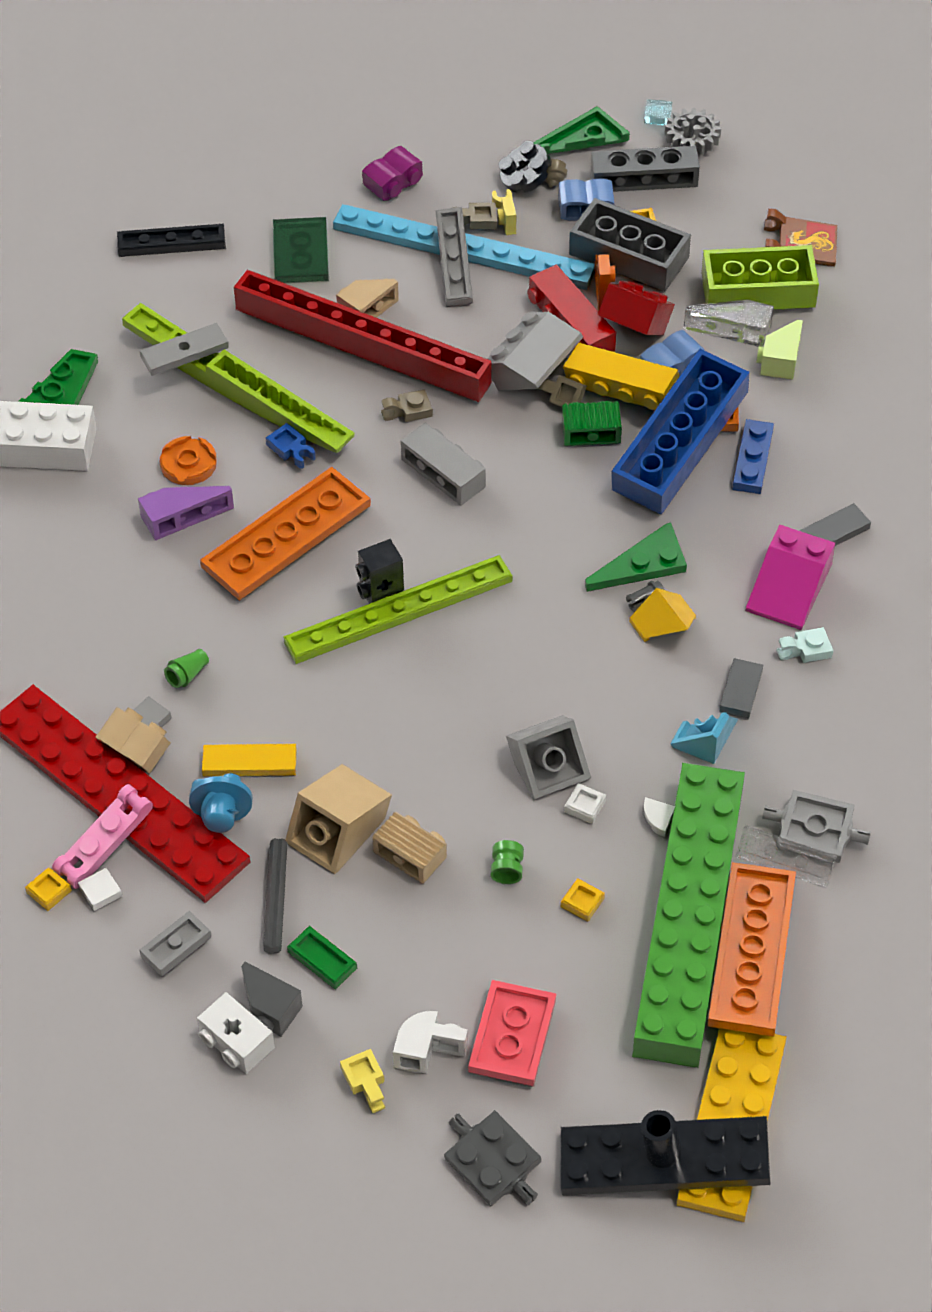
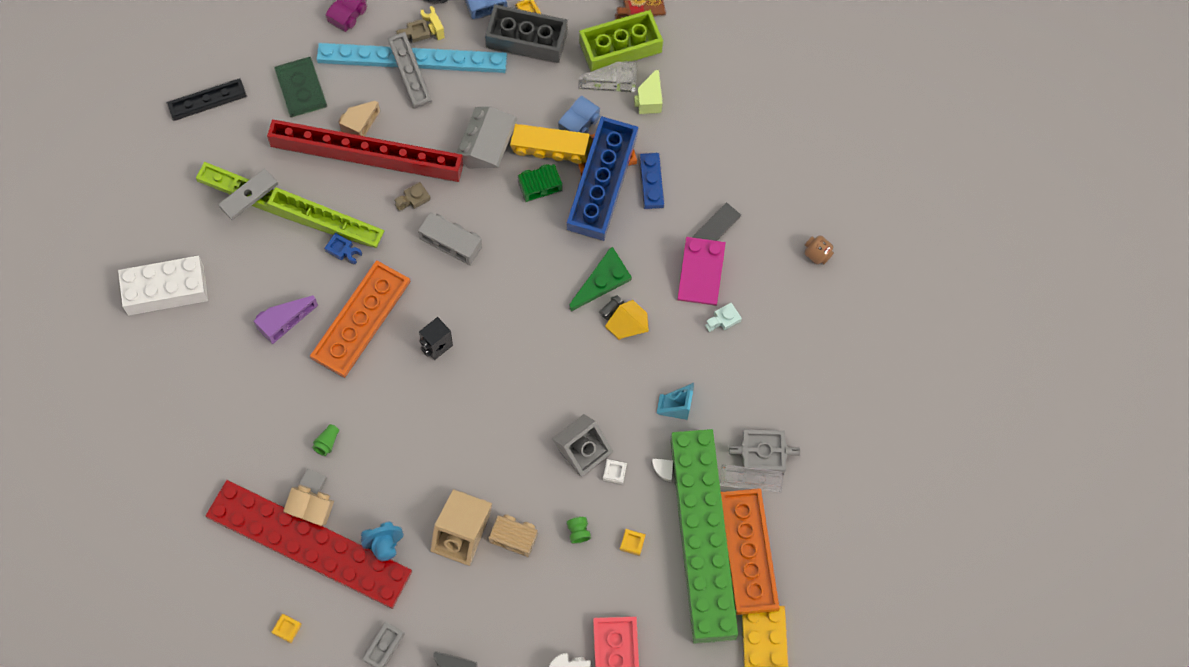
camera: 20 degrees left, 15 degrees up
(67, 379) = (170, 239): green wing -> none
(100, 889) = (321, 619): white tile -> none
(103, 836) = (312, 583): bright pink plate -> none
(188, 460) = (275, 276): orange tile -> none
(249, 759) = (388, 497): yellow tile -> none
(275, 896) = (436, 593): dark grey axle -> none
(322, 957) = (480, 629): green tile -> none
(397, 609) = (451, 357): lime tile -> none
(558, 295) = (501, 95): brick -> none
(564, 390) = (515, 162): dark tan plate -> none
(603, 276) = (518, 67): orange plate -> none
(636, 308) = (546, 87): red brick -> none
(741, 688) = (690, 360): dark grey tile -> none

